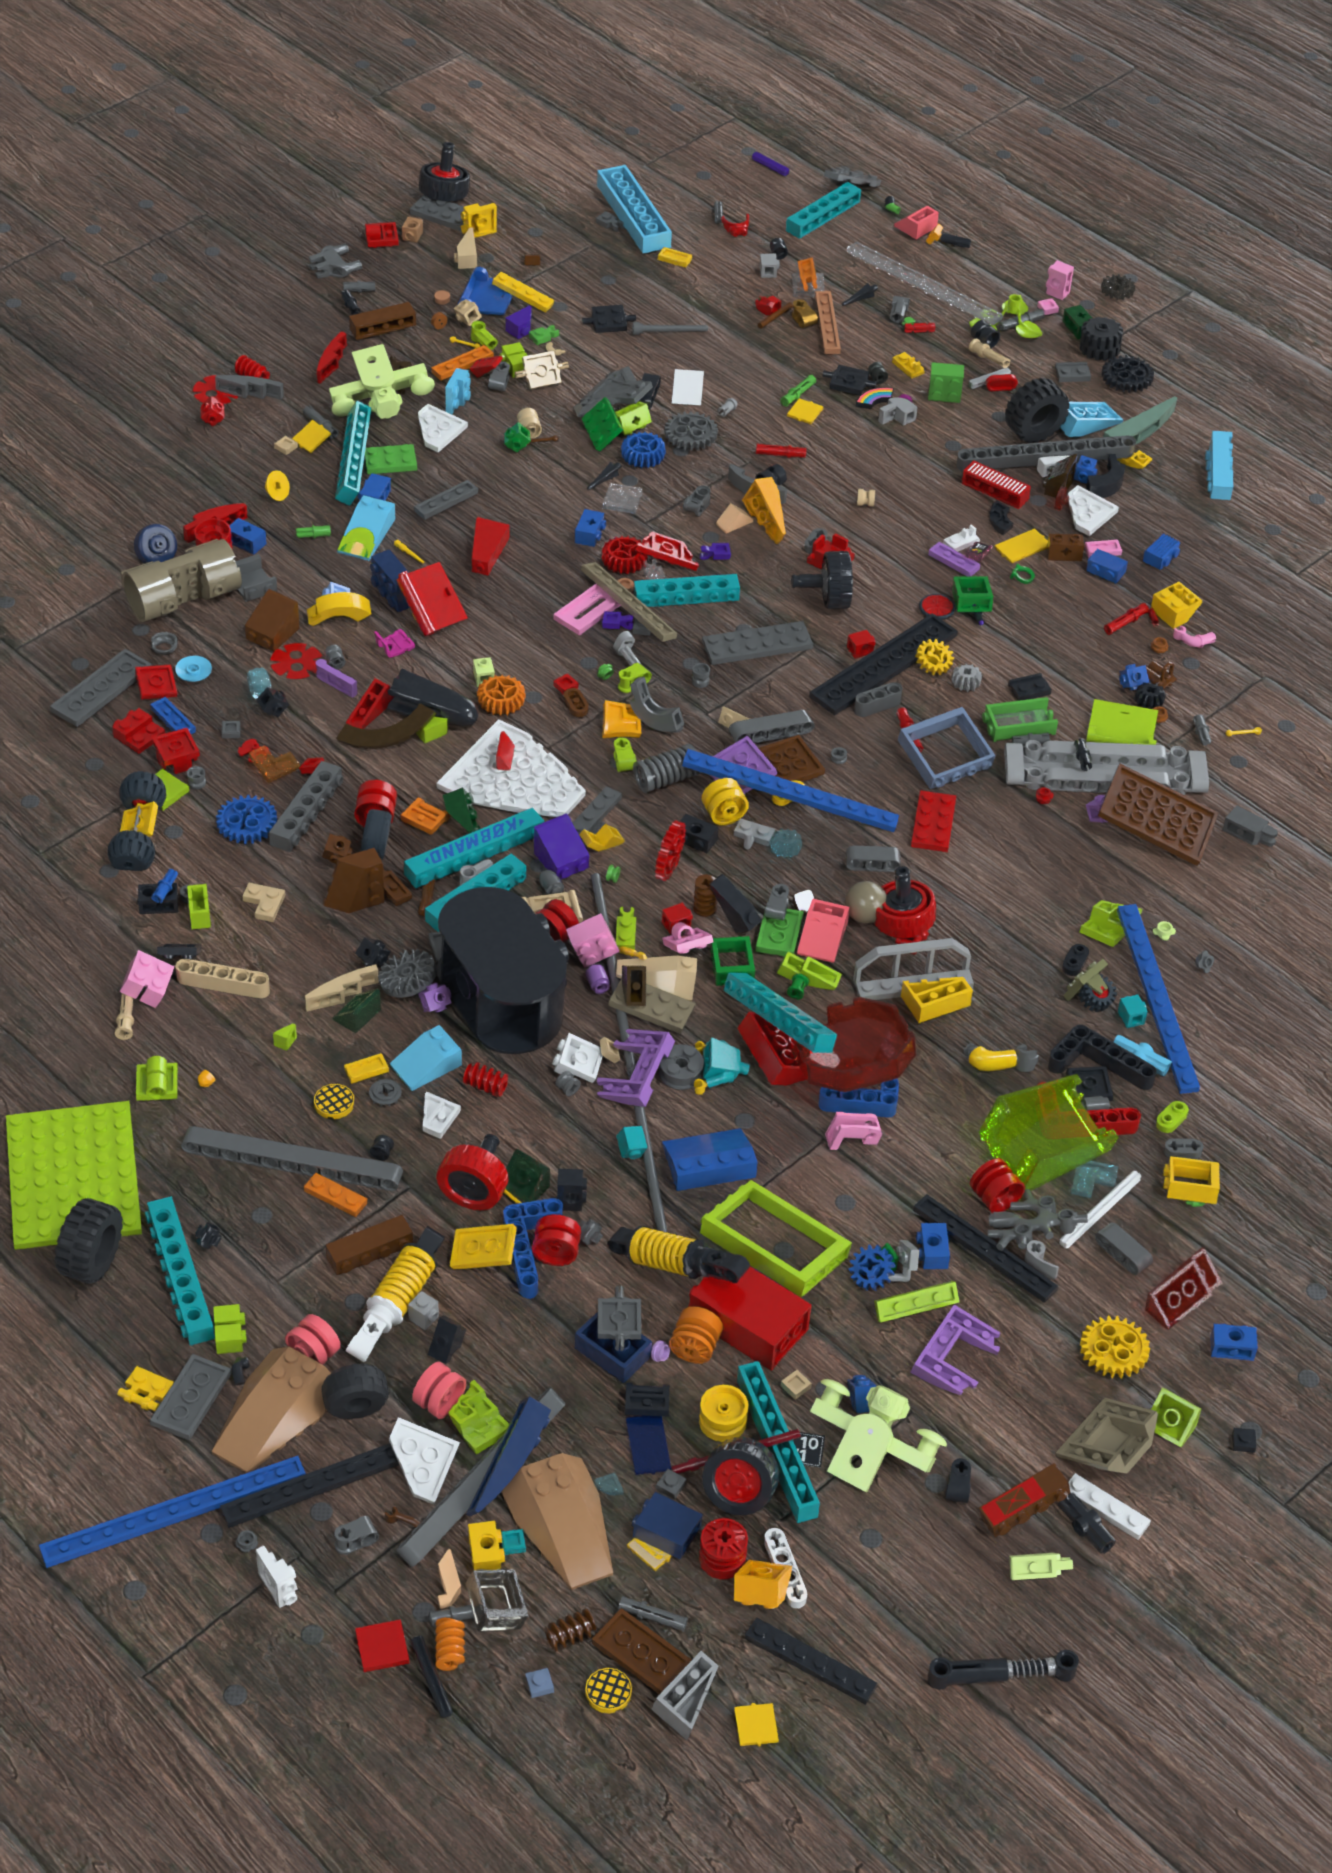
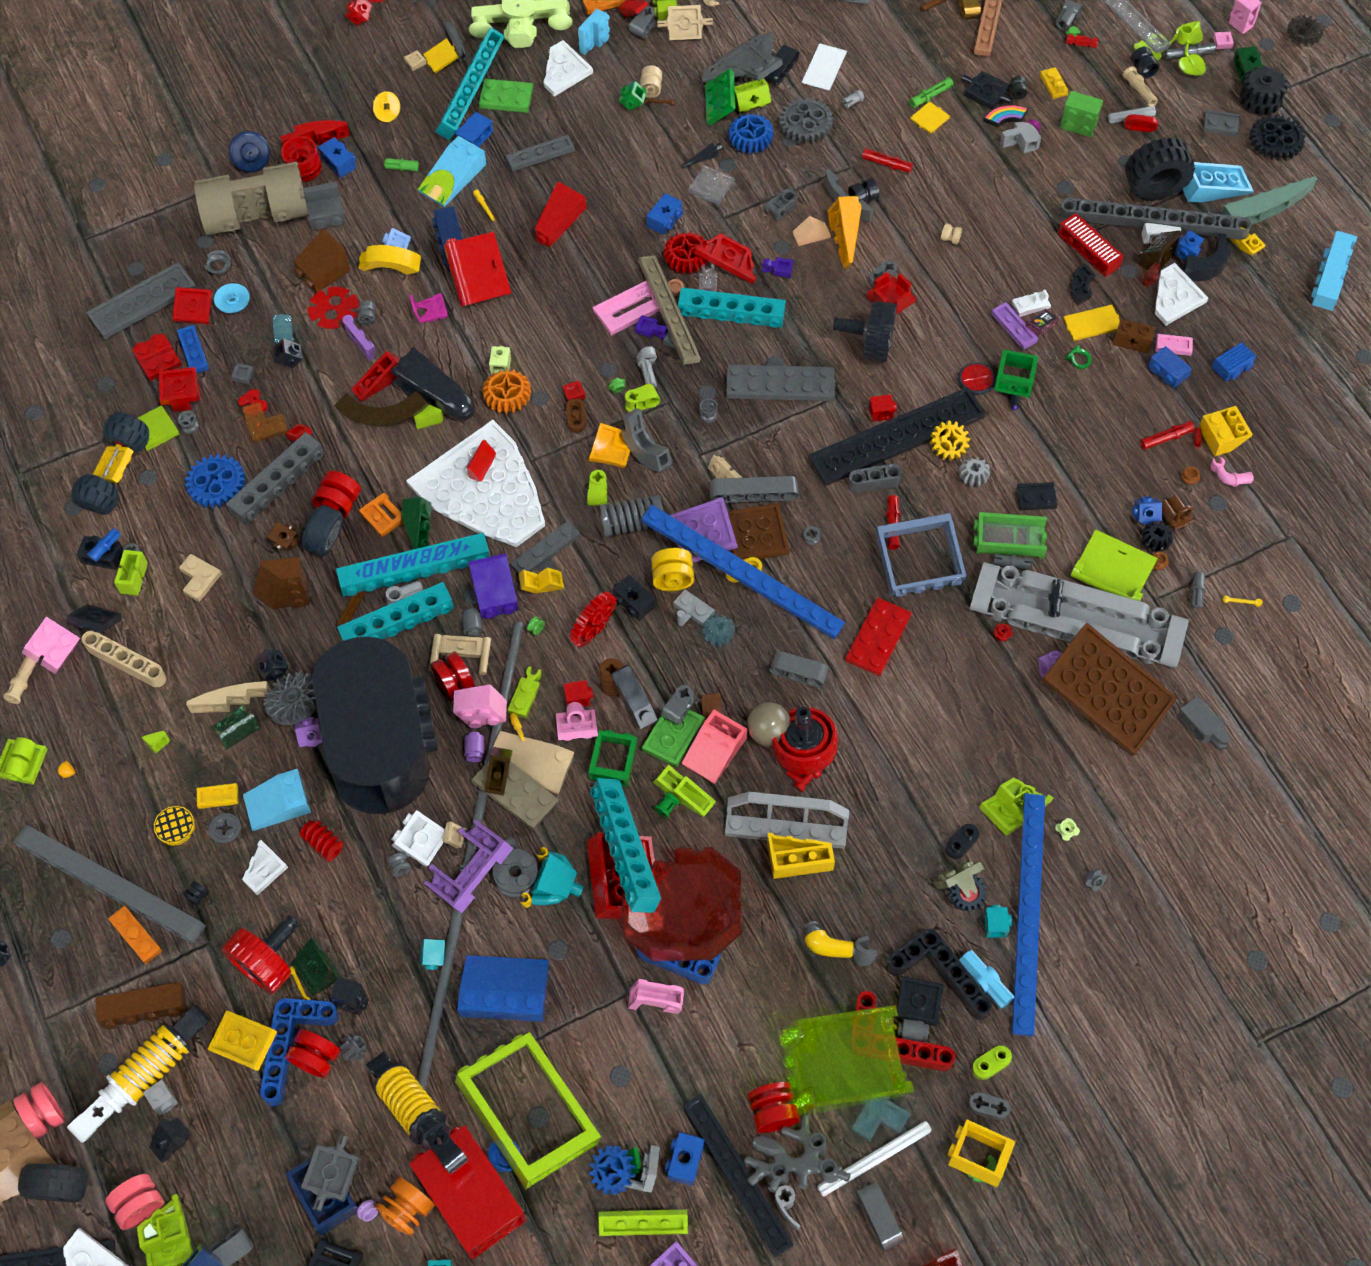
camera: 20 degrees right, 15 degrees up
(395, 889) = (320, 589): reddish brown hinge -> none

